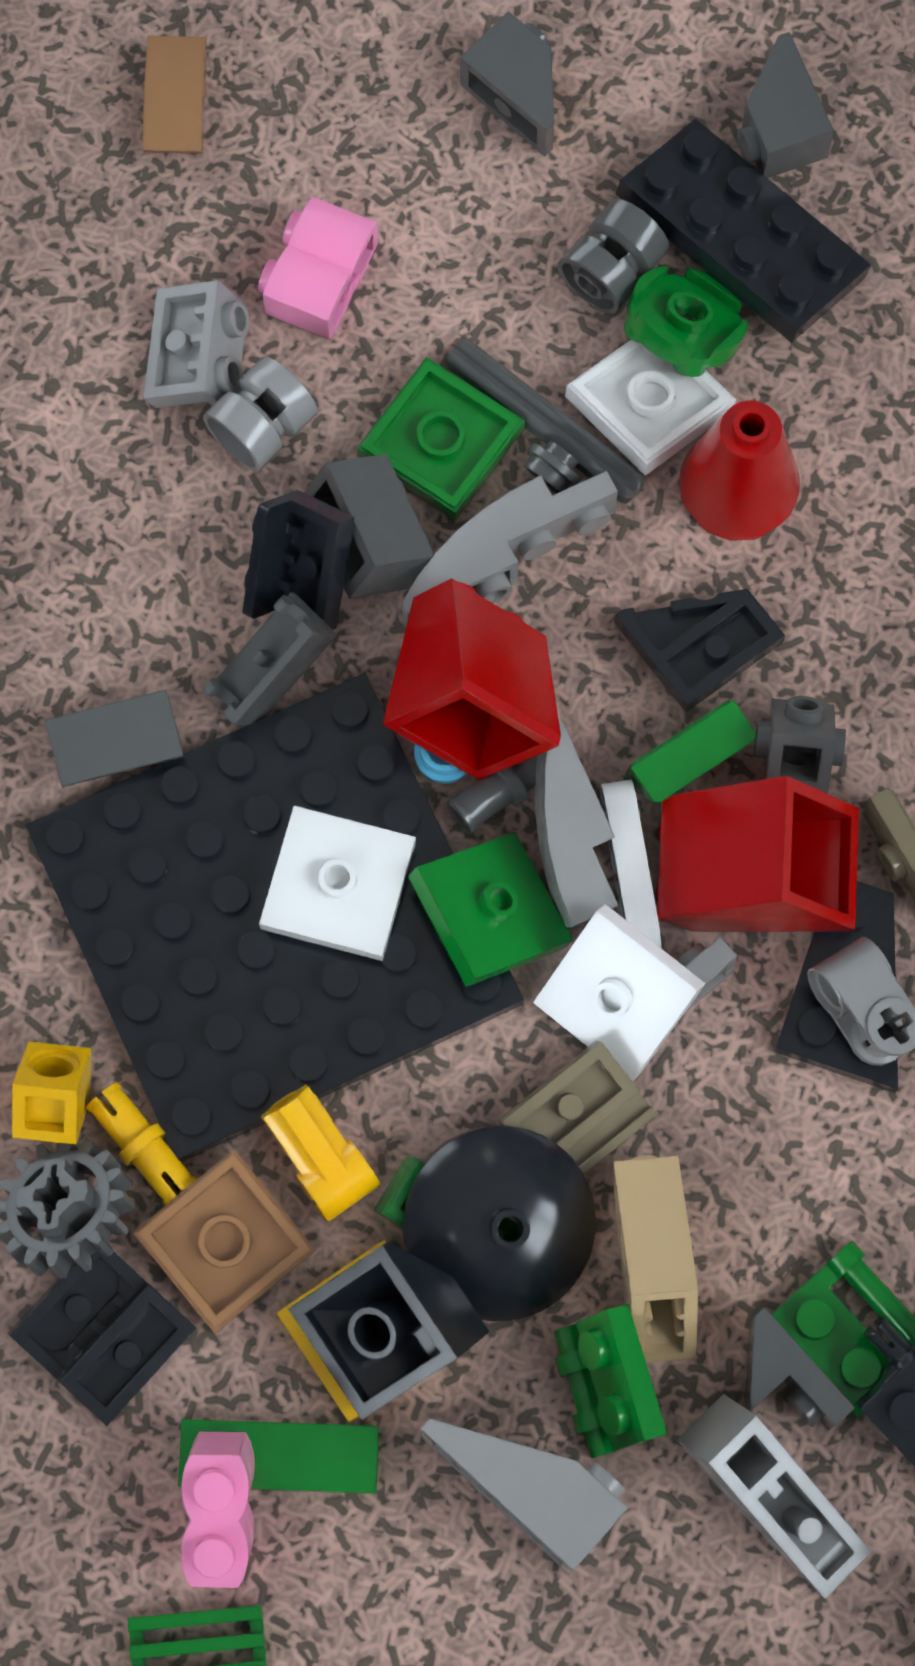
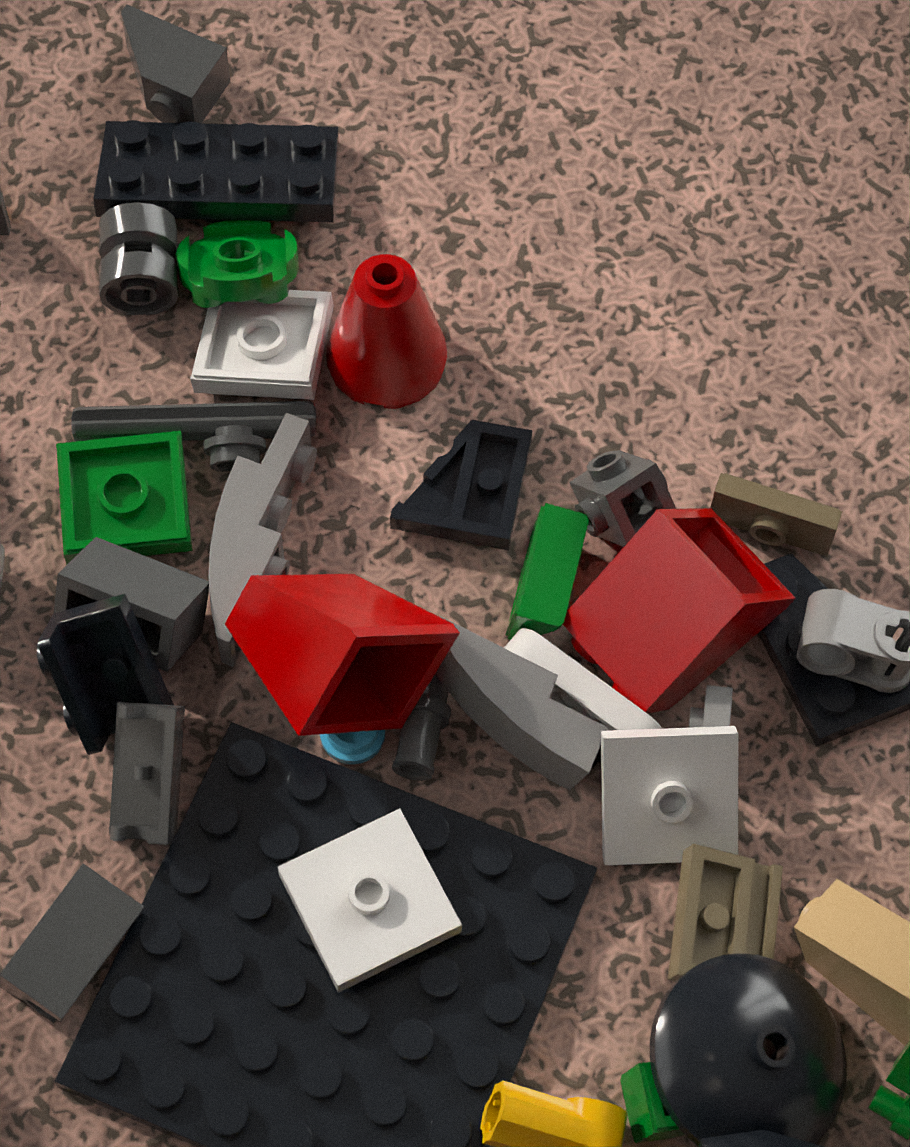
camera: 45 degrees left, 10 degrees down
(490, 908) = (507, 818): green plate -> none

